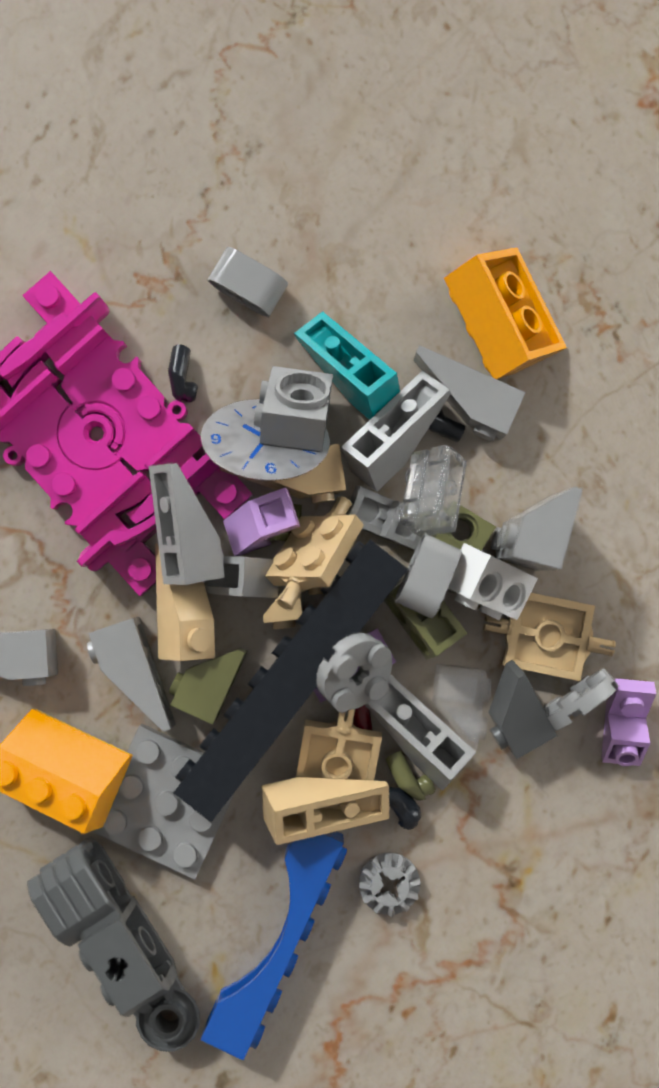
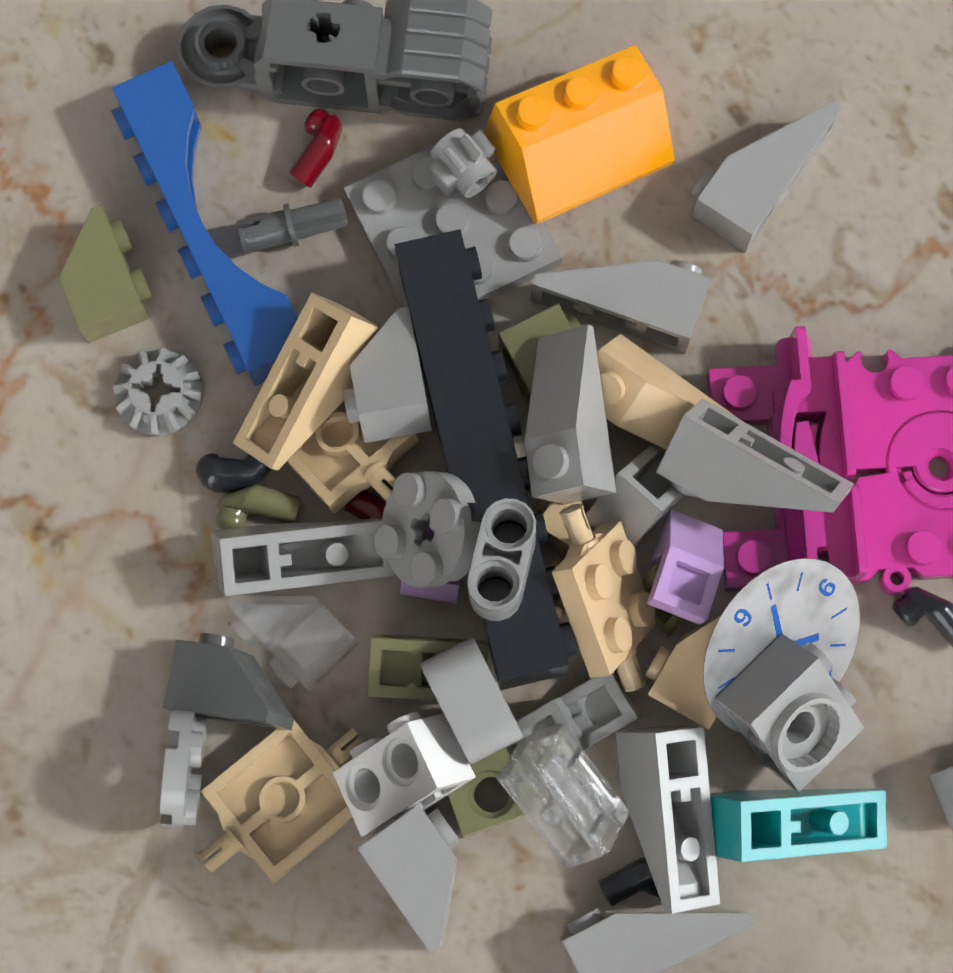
camera: 130 degrees right, 10 degrees down
(130, 823) = (463, 162): none -> light grey gear
(182, 911) = (321, 148): none -> dark red arm
(234, 647) = (567, 421): none -> light grey slope
(239, 890) = (290, 225): none -> dark grey axle
(290, 760) = (388, 384): none -> light grey slope
(347, 622) = (502, 559): none -> light grey beam
(356, 969) = (99, 281): none -> olive slope
(625, 722) = (106, 809): lavender slope -> none

